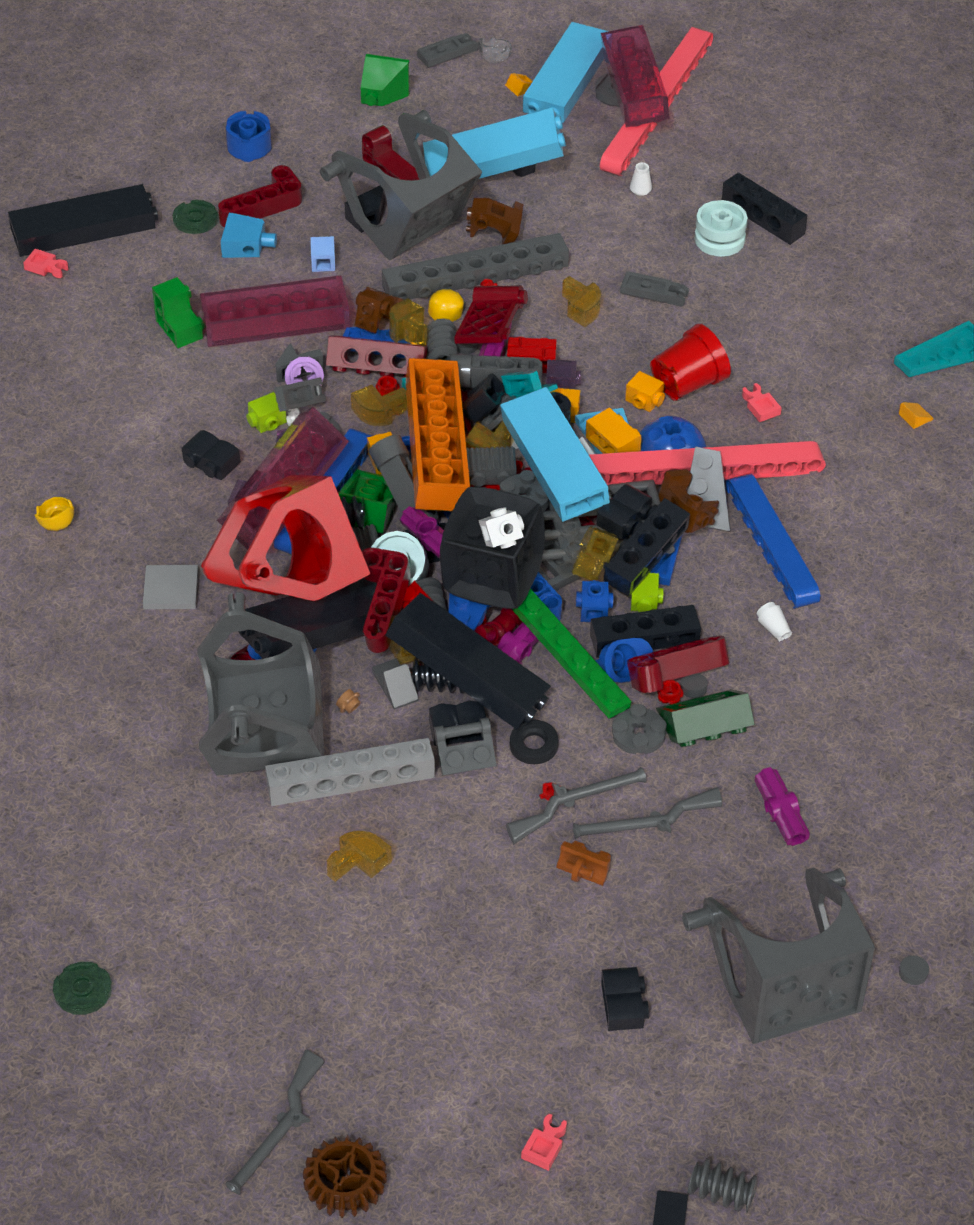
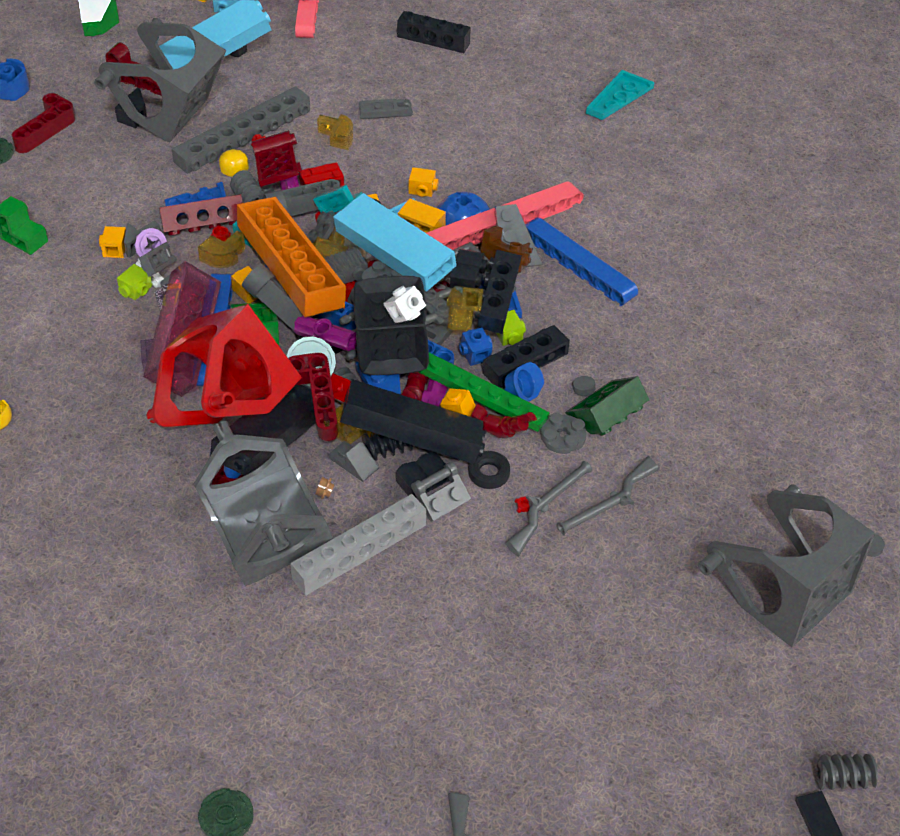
camera: 25 degrees left, 0 degrees up
(170, 587) = (124, 444): light grey tile -> none
(211, 455) = (104, 328): black brick -> none
(245, 237) = (45, 154): dark azure torso -> none
(265, 358) = (113, 242): none -> light orange brick
(274, 311) = (100, 202): clear pink brick -> none
(322, 254) = (115, 150): light blue brick -> none
(360, 850) = (405, 605): clear yellow brick -> none
(372, 307) = (183, 177): reddish brown tile -> none
(408, 323) = (214, 182): clear yellow brick -> none
(483, 398) = (307, 218): black brick -> none
(495, 215) = (240, 86): reddish brown tile -> none
(536, 658) = (458, 401): none -> light orange brick
(544, 1146) = (687, 796): coral plate -> none
(563, 373) = (355, 184): clear purple brick -> none
(569, 697) = (503, 426): none -> dark red piece
(584, 863) = (584, 551): dark orange hips -> none
(623, 998) = (678, 649): black brick -> none
(641, 180) = (333, 36): white cone -> none
(653, 668) = (552, 382): dark red beam -> none
(673, 687) = (570, 396): red plate -> none
(691, 363) = (450, 149): red piece -> none
(720, 228) = (411, 53): light aqua wheel -> none
(761, 405) = (512, 168): coral plate -> none
(774, 621) = (615, 319): white cone -> none
(782, 806) = (704, 454): magenta piece -> none
(914, 414) = (622, 144): light orange slope -> none

